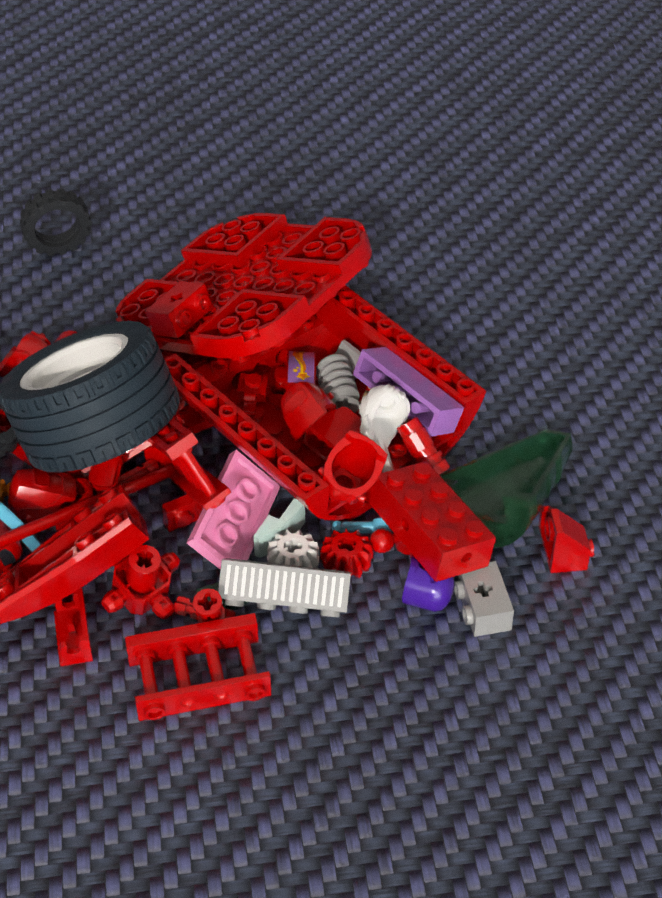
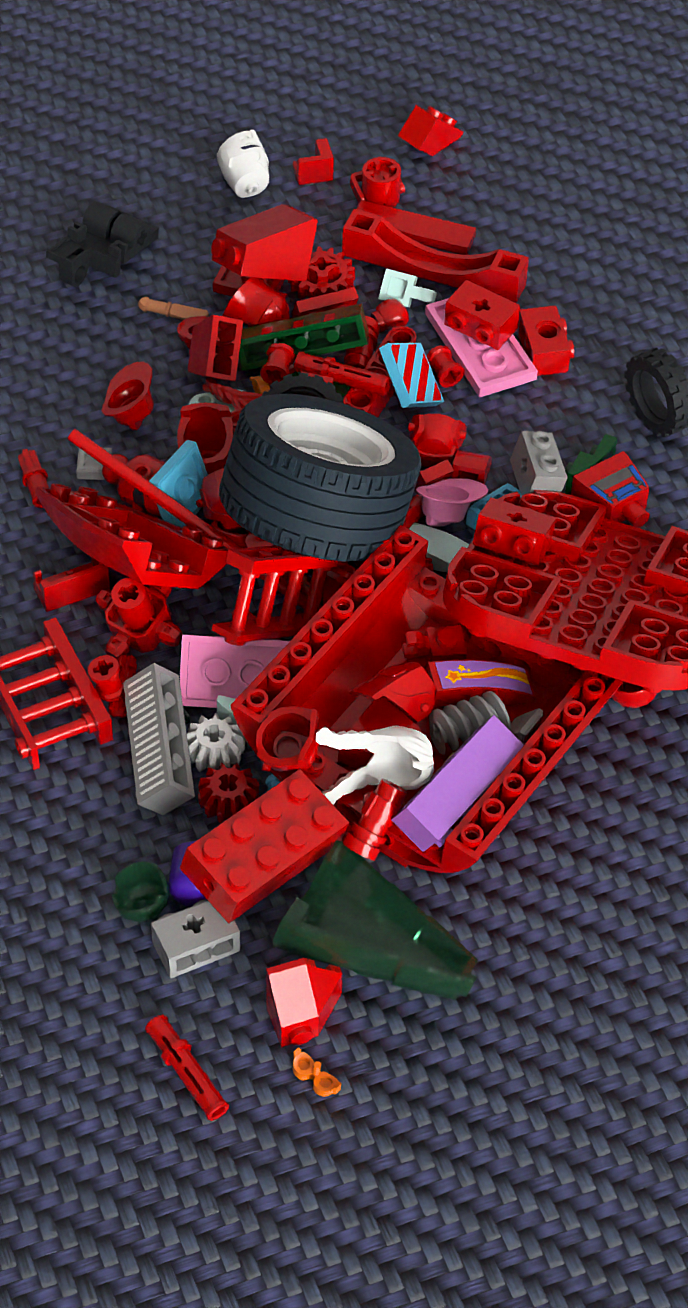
camera: 75 degrees right, 5 degrees up
(88, 306) = (537, 463): none -> light grey brick
(93, 278) = (584, 460): none -> dark green slope
(125, 272) = (617, 486): none -> red torso
(436, 625) = (140, 891): none -> clear green hair
(571, 636) = (178, 1055): none -> red pin
(624, 547) = (305, 1069): none -> orange piece

